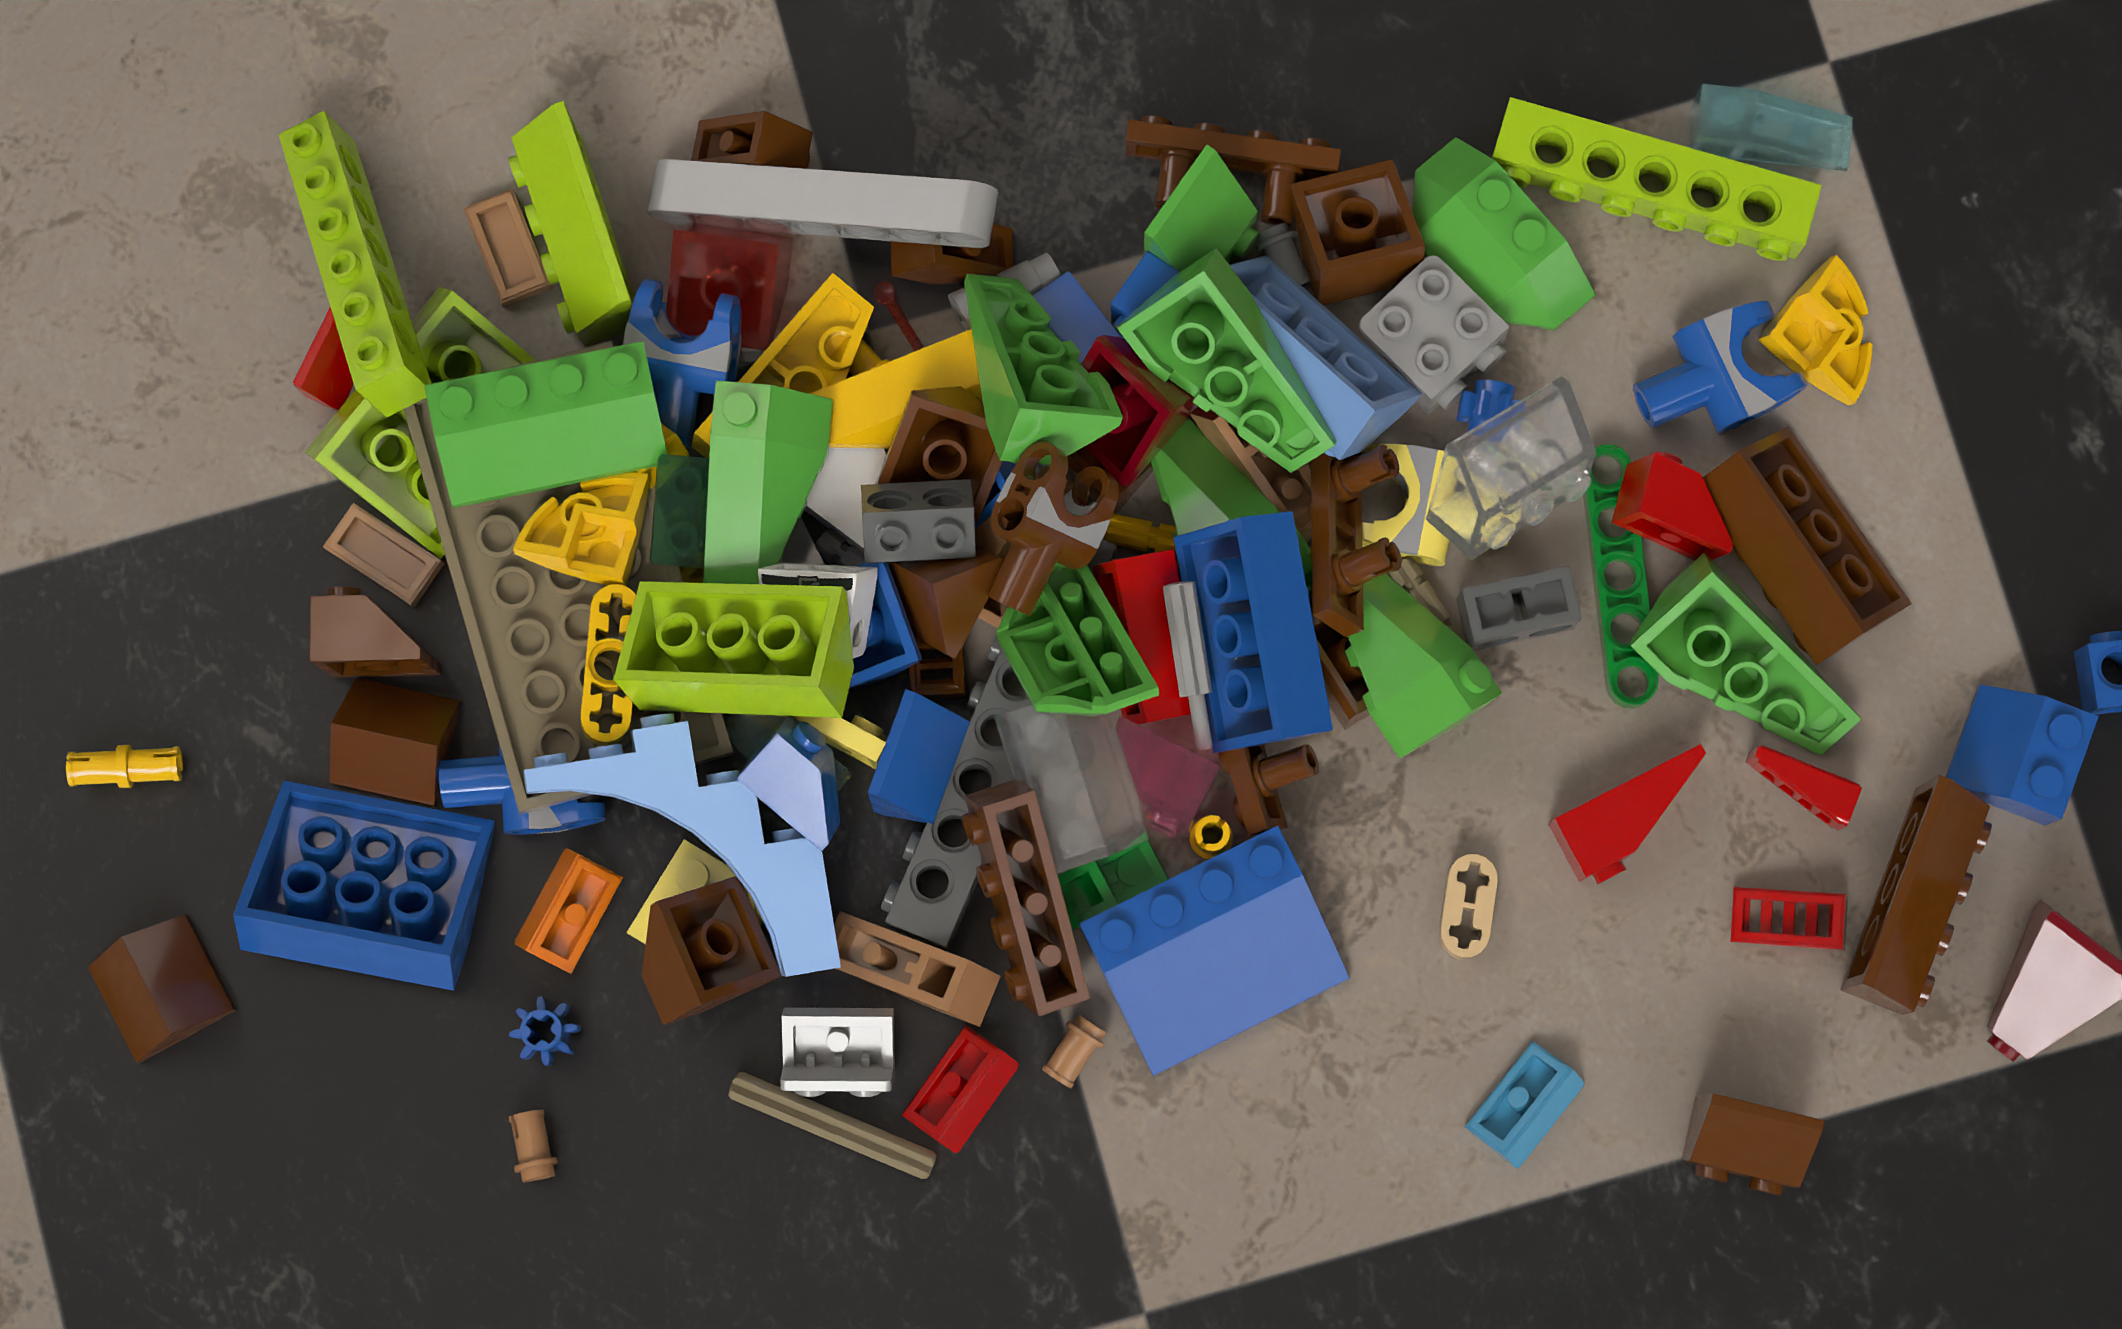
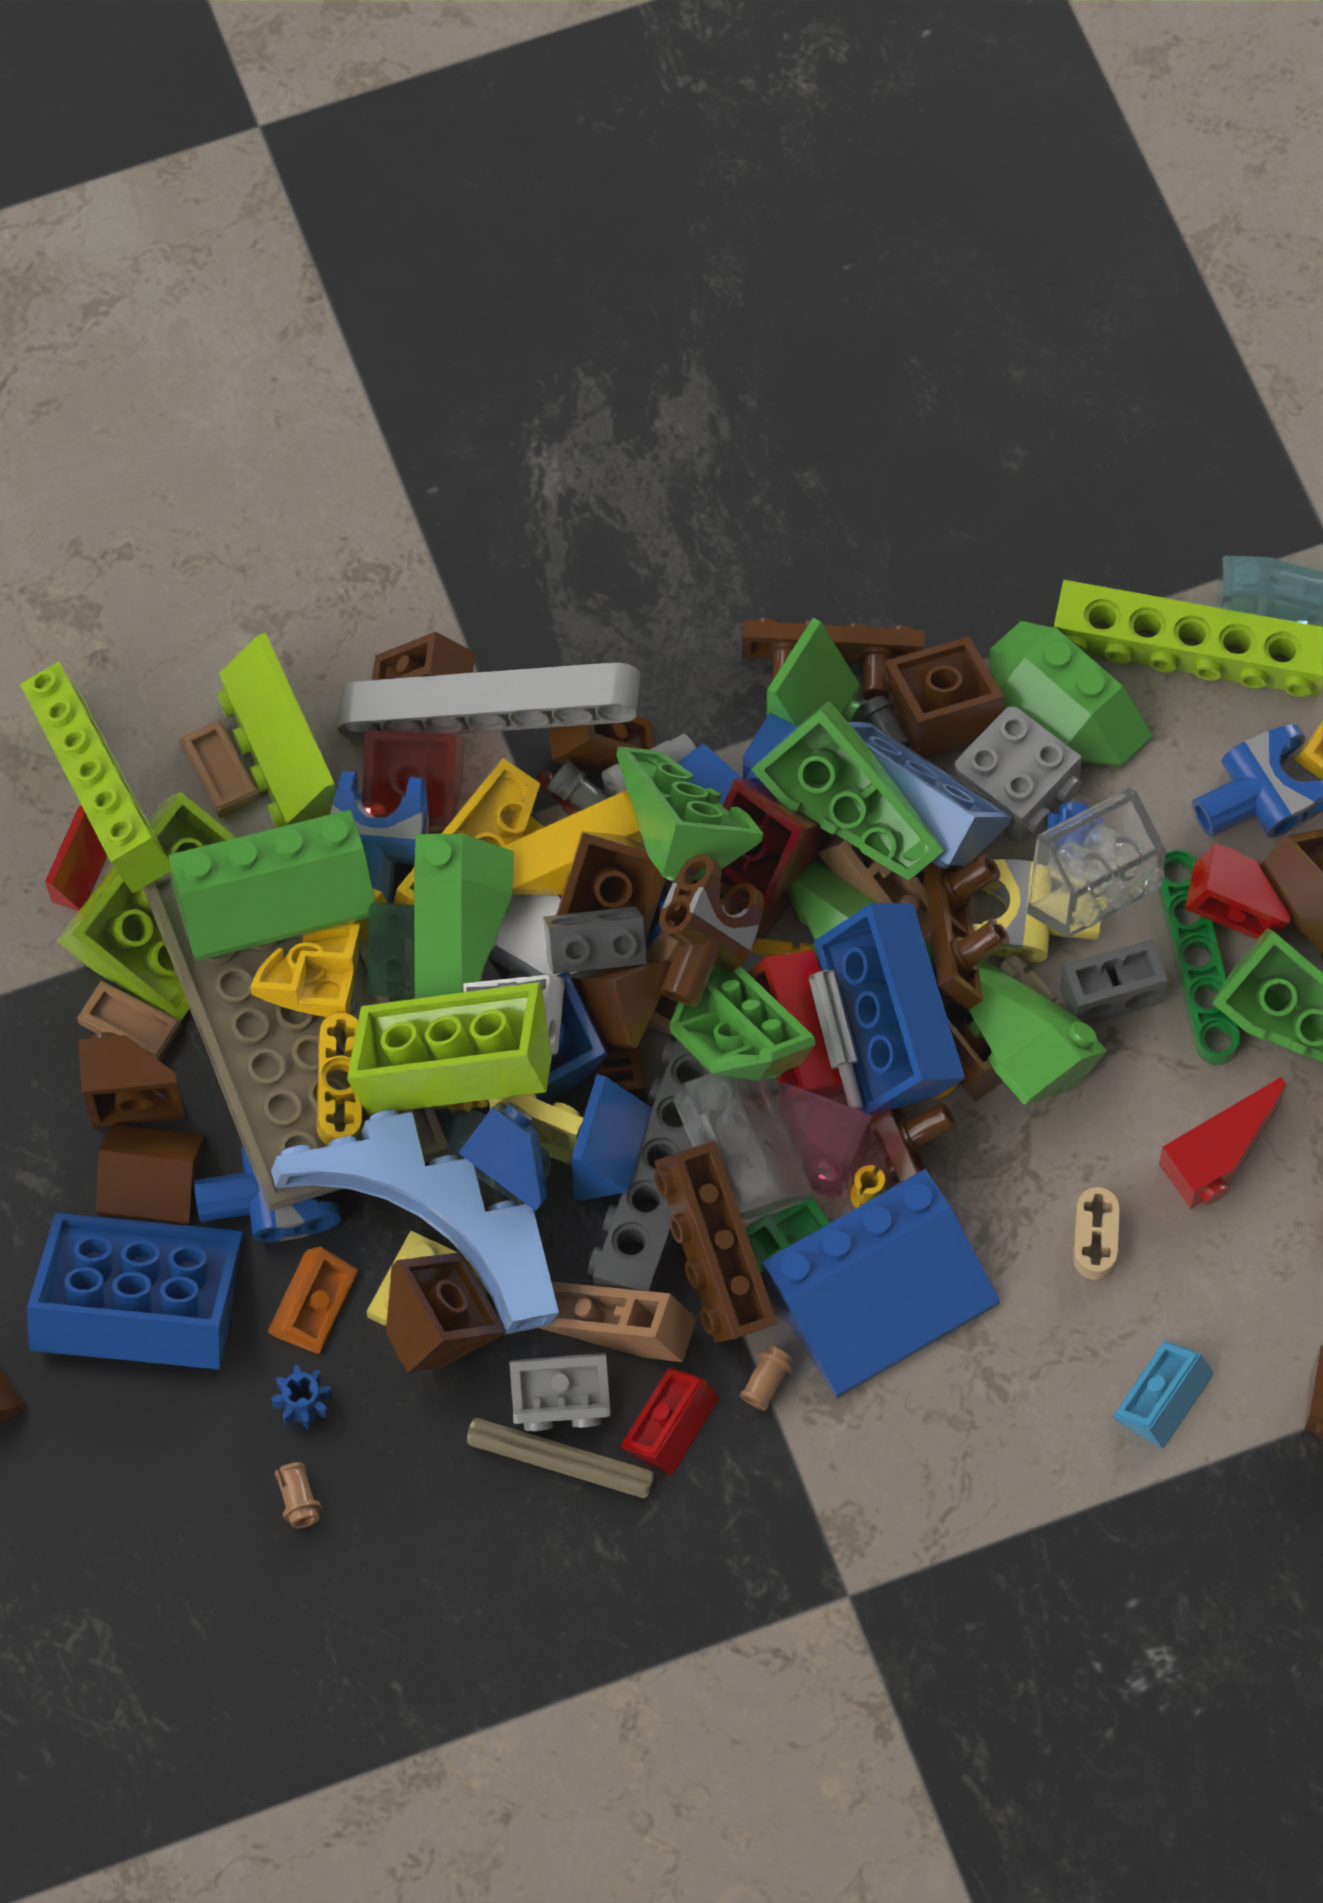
camera: 10 degrees left, 15 degrees down
(914, 308) = (572, 785): none -> dark grey pin

